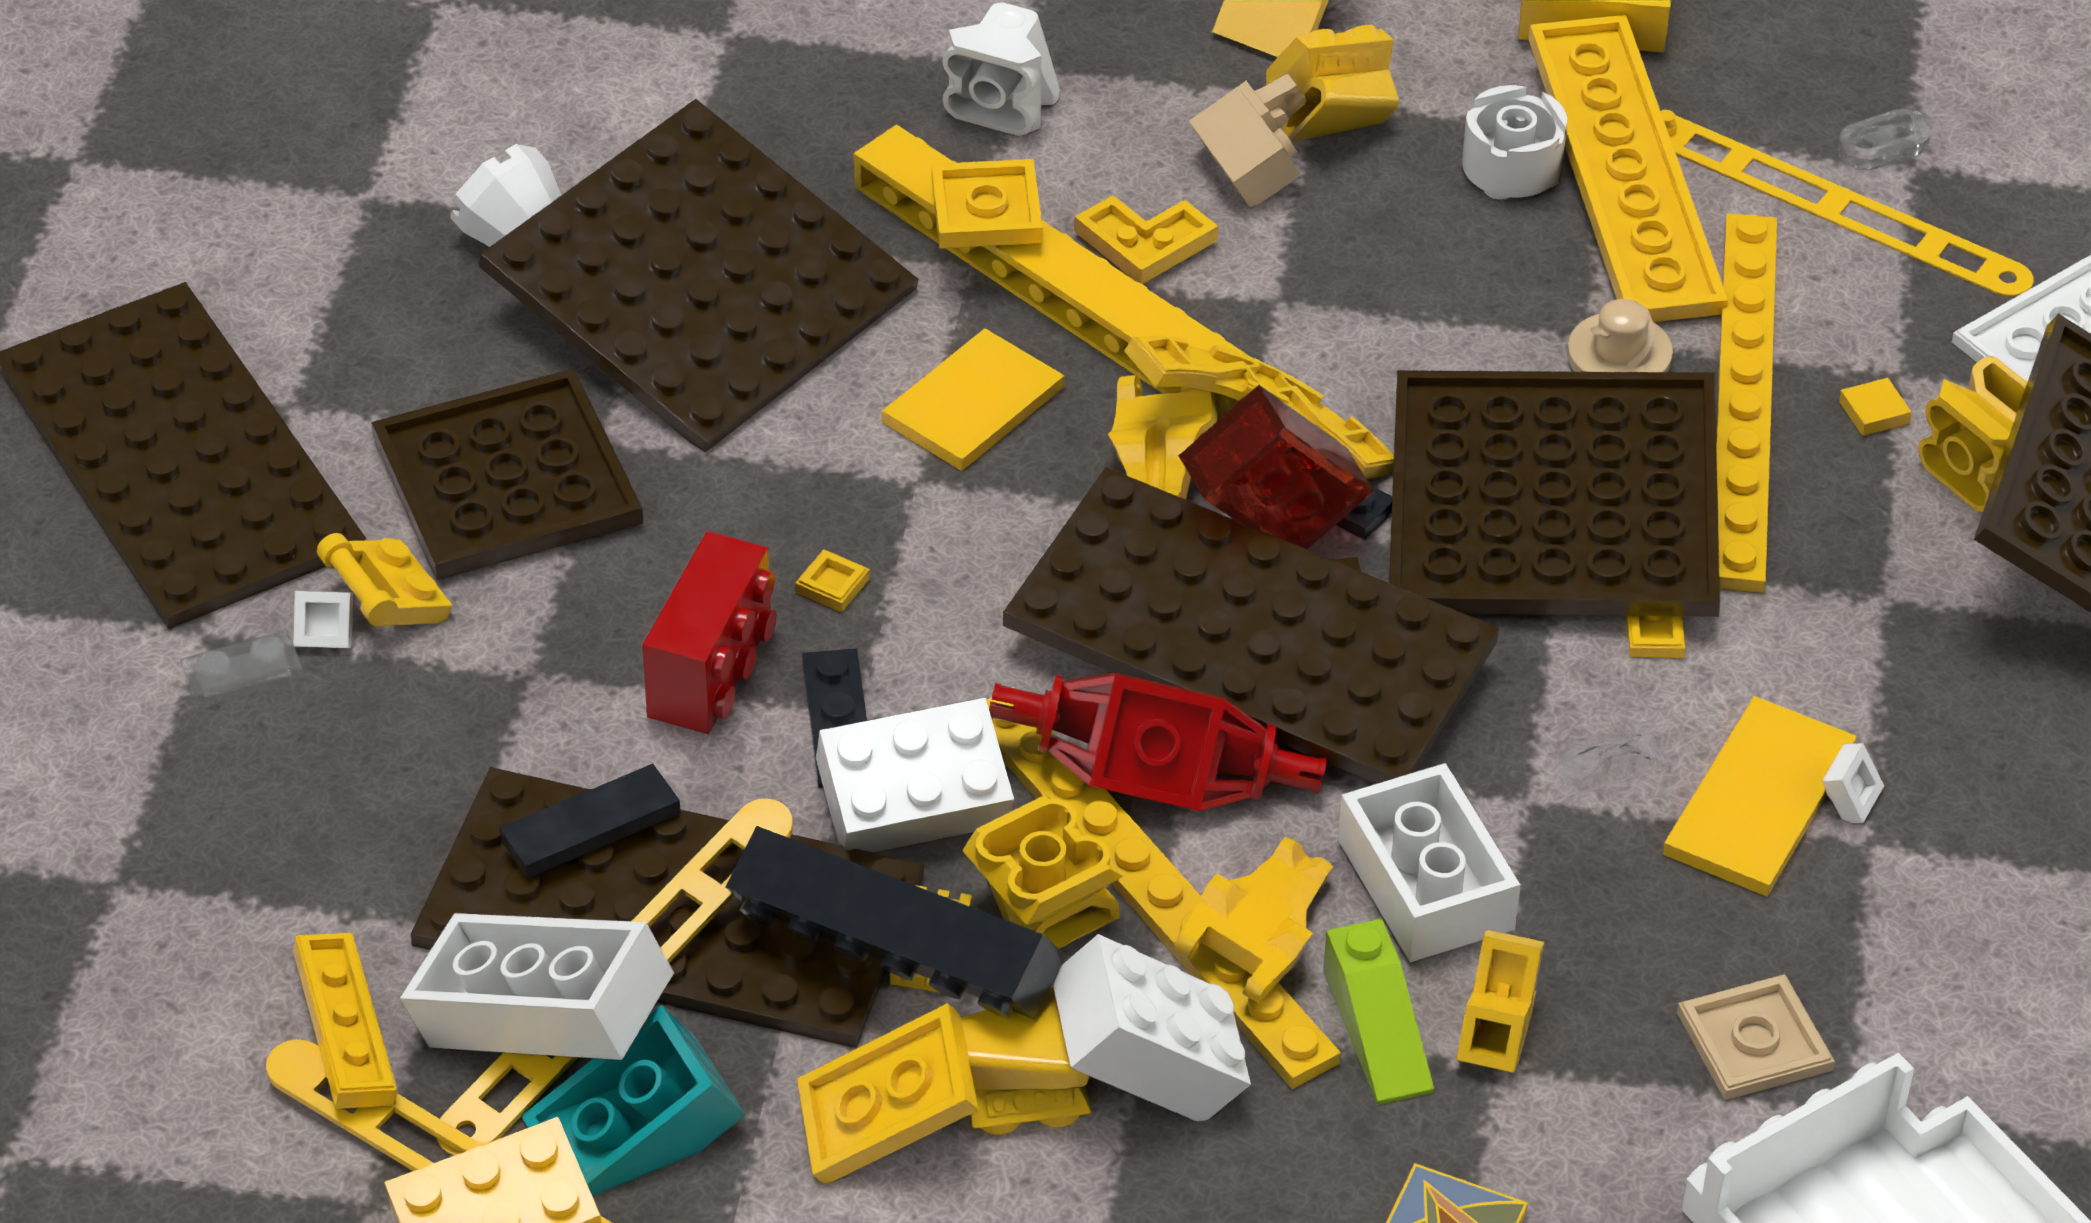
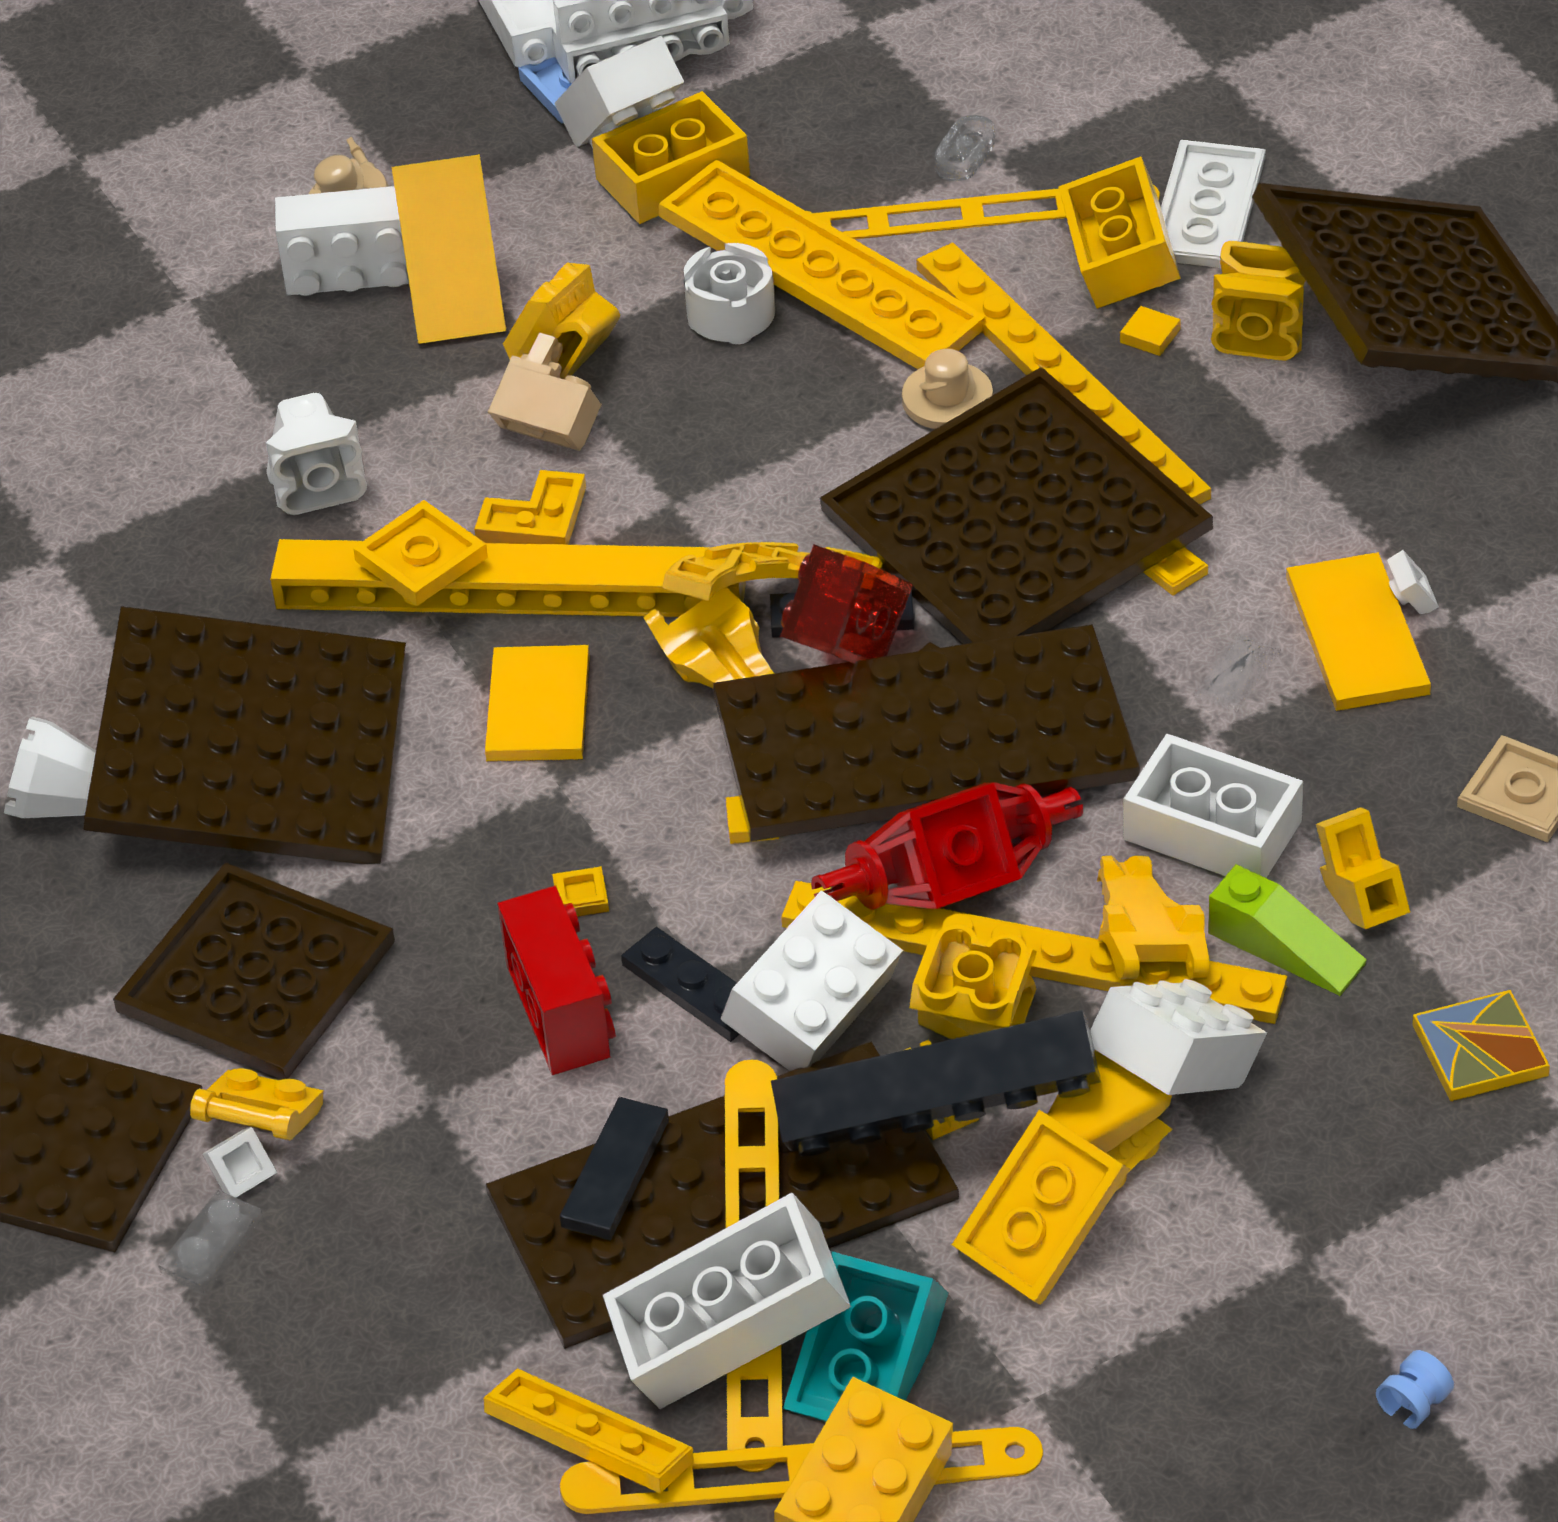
camera: 35 degrees left, 0 degrees up
(1926, 295) = (1119, 232): none -> yellow brick

